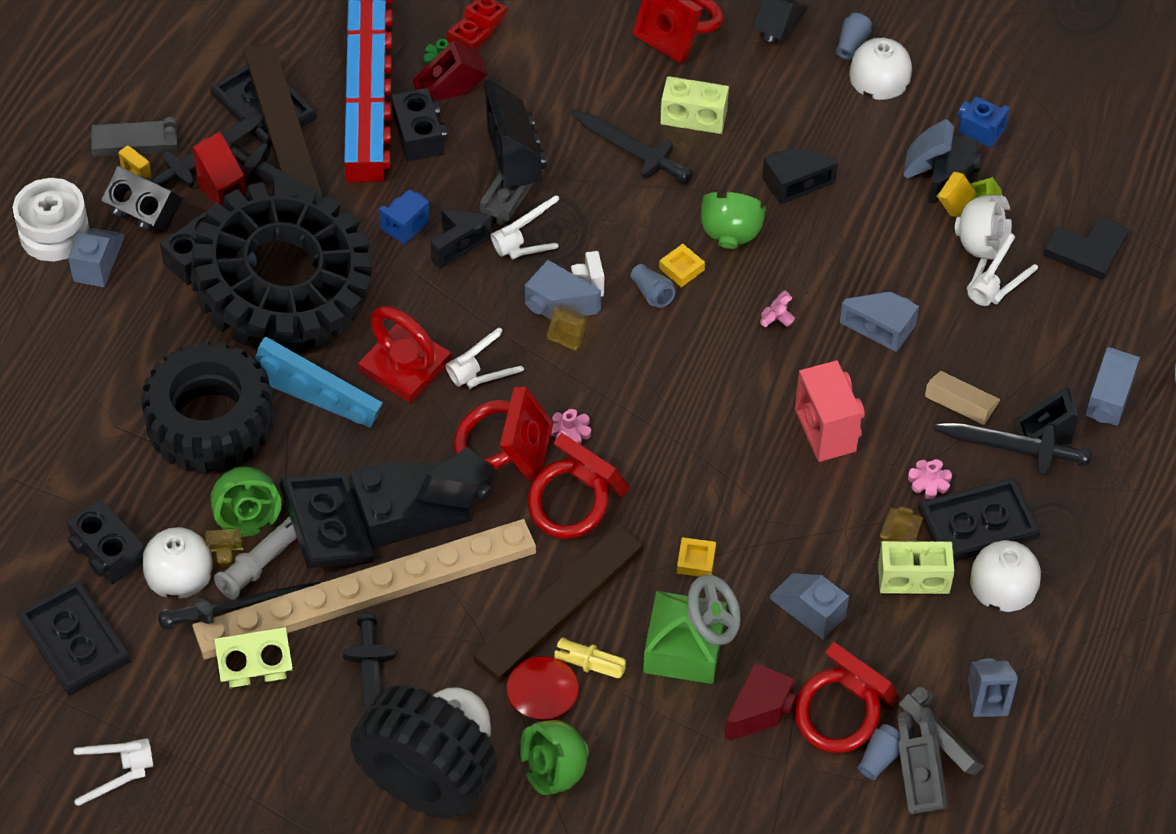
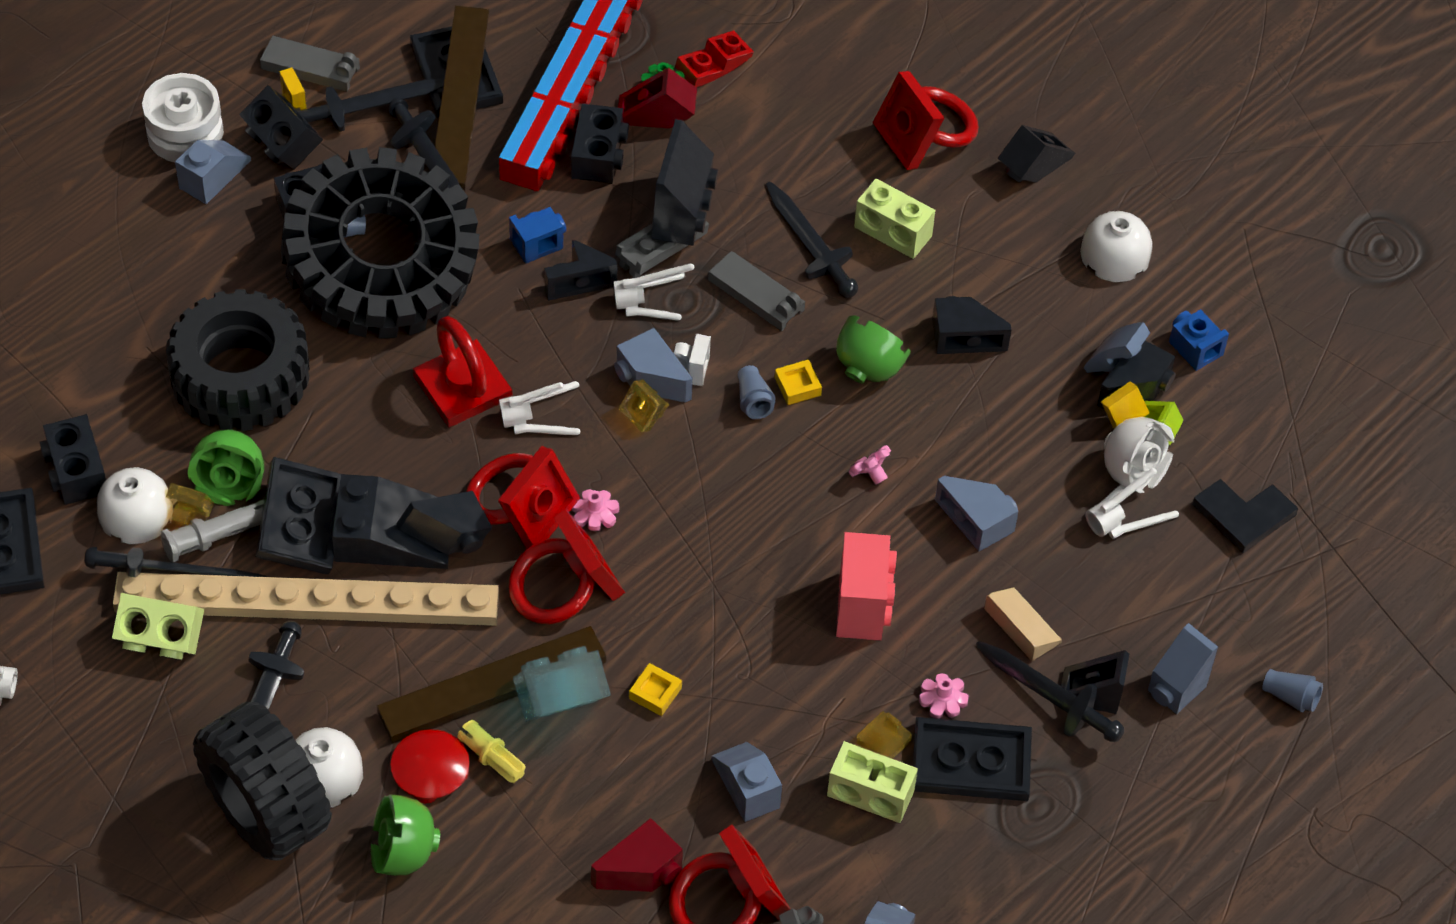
camera: 20 degrees right, 0 degrees up
(217, 169) = (368, 119): red slope -> none
(315, 385) = (350, 369): dark azure wing -> none
(609, 202) = (756, 290): none -> dark grey hinge
(625, 579) = (561, 685): none -> clear light blue brick
(689, 631) = (600, 761): bright green piece -> none
(854, 33) = (1109, 196): sand blue cone -> none
(1005, 575) = (968, 827): white cylinder -> none

